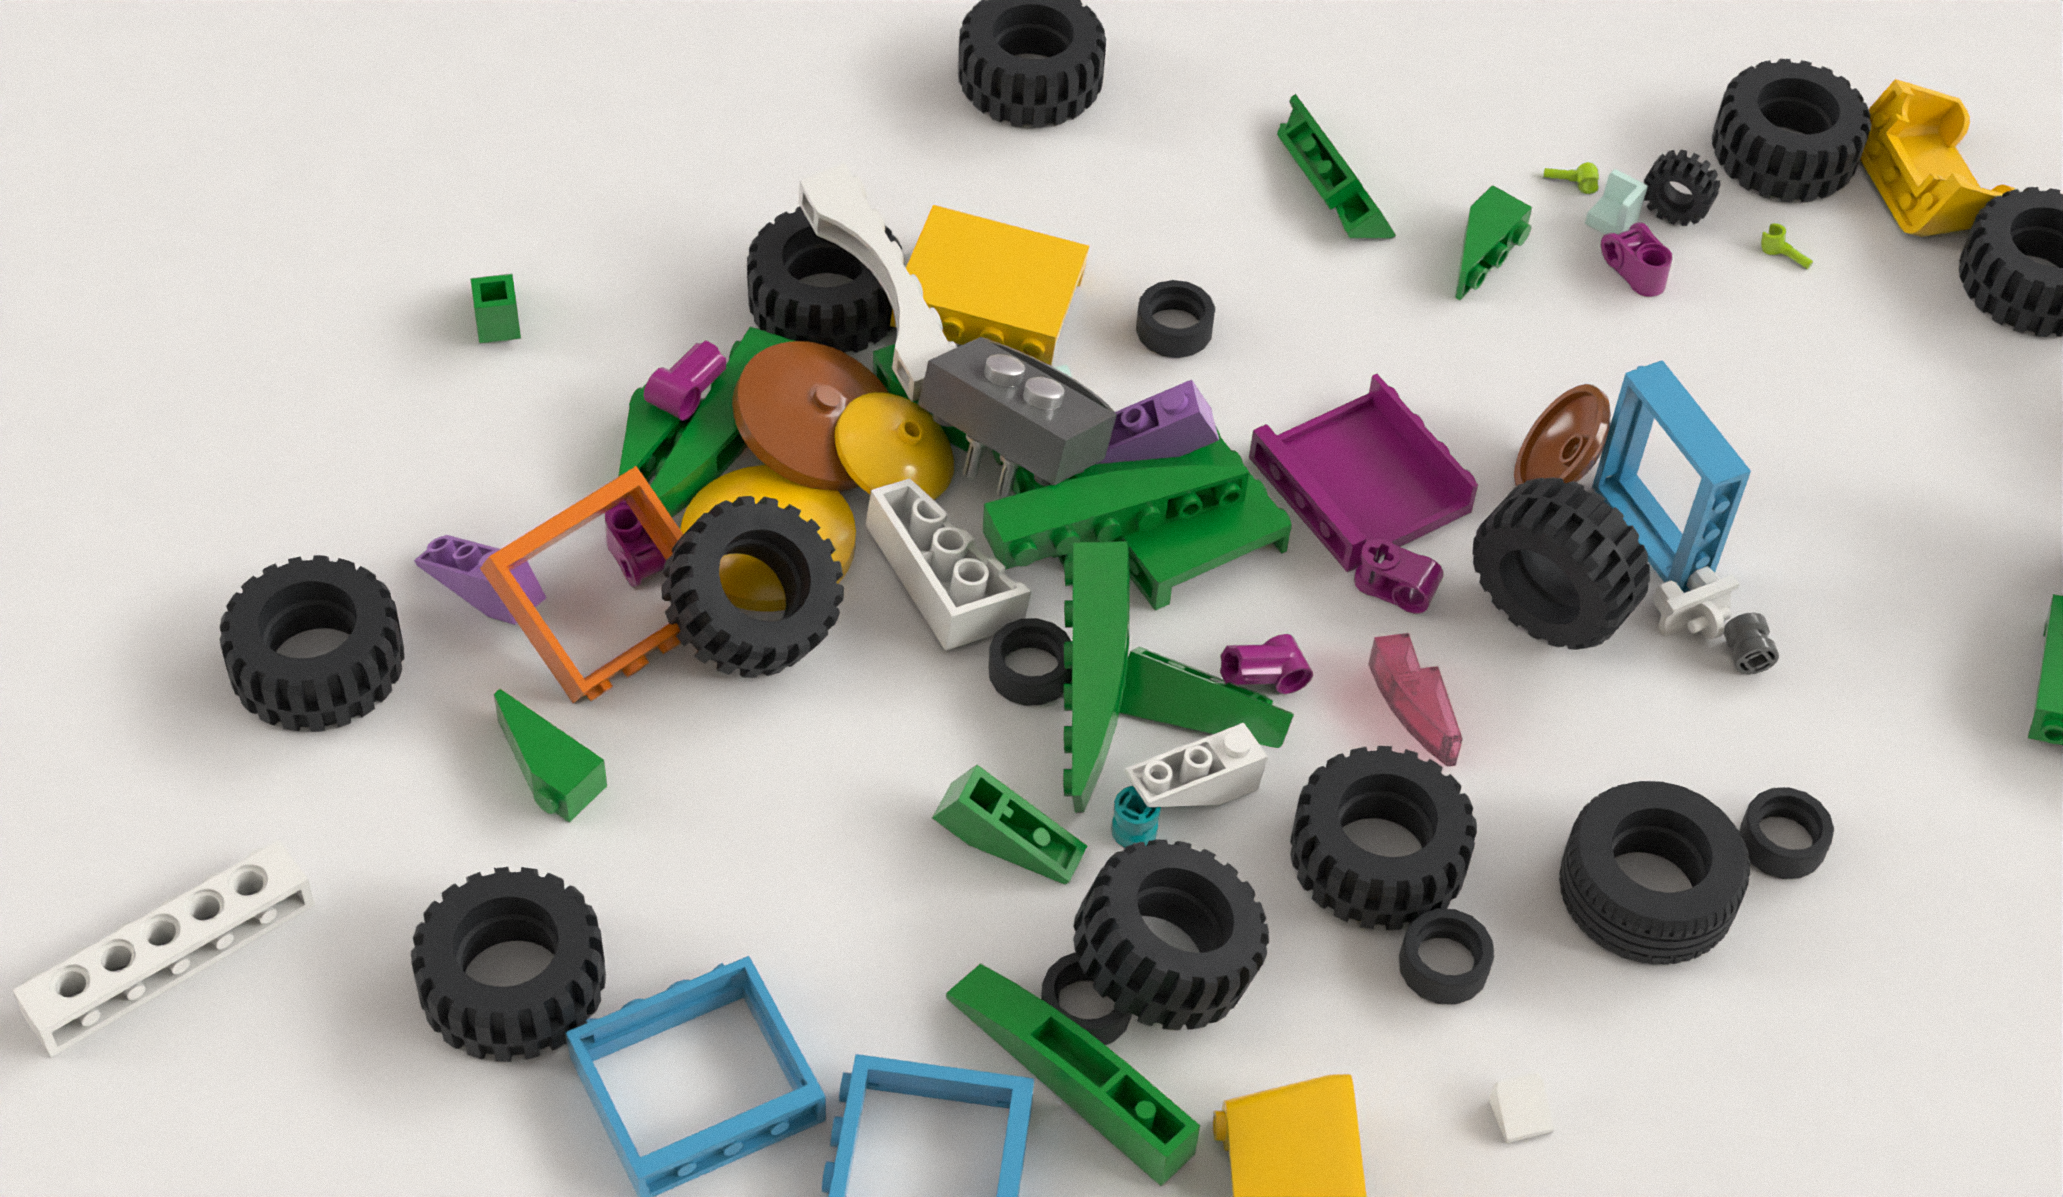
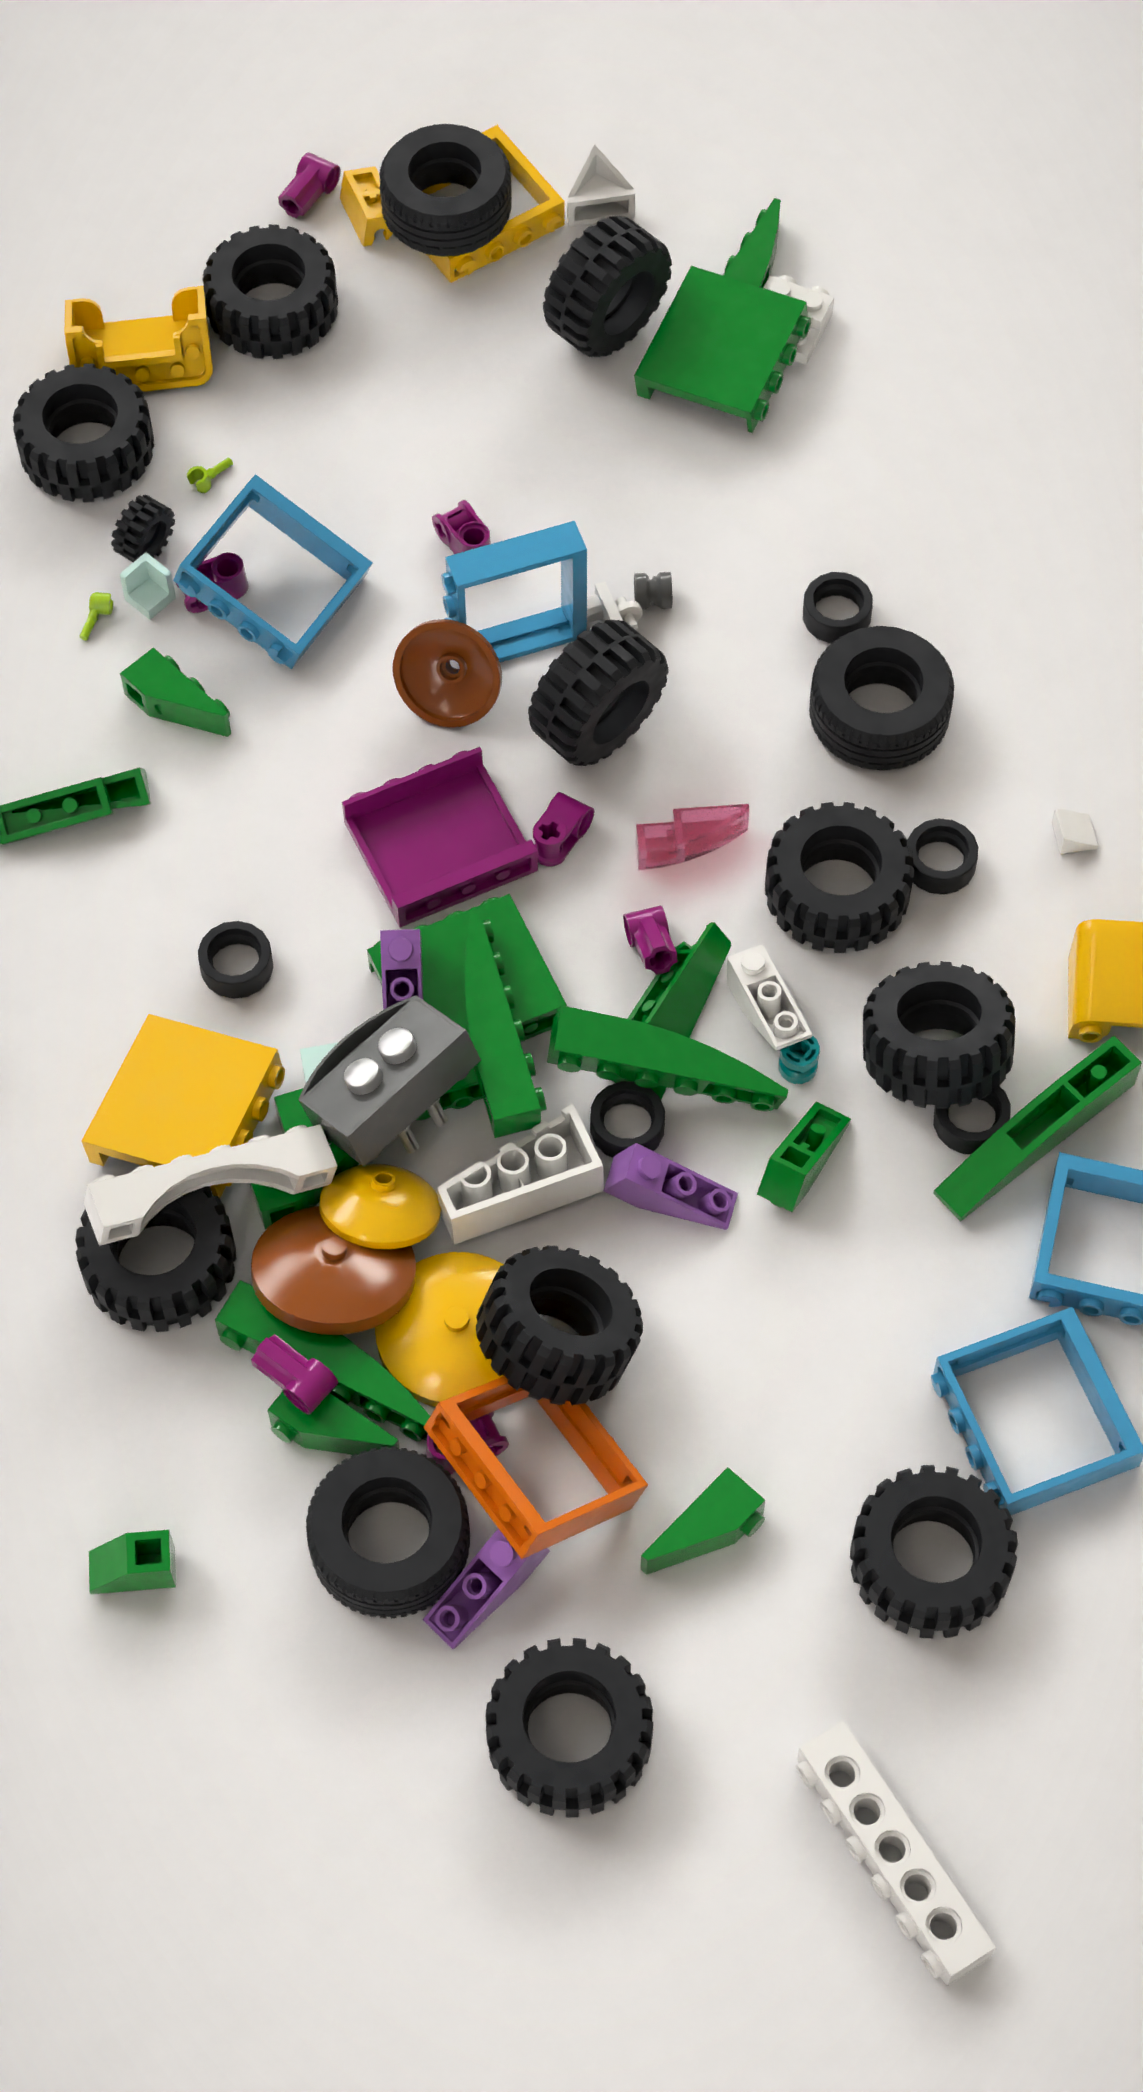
camera: 80 degrees left, 10 degrees up
(518, 439) = (377, 1479): none -> black tyre
(949, 705) = (668, 1188): none -> medium lavender slope
(1674, 224) = (300, 528): none -> dark azure window
(1776, 465) = (461, 528): none -> magenta piece

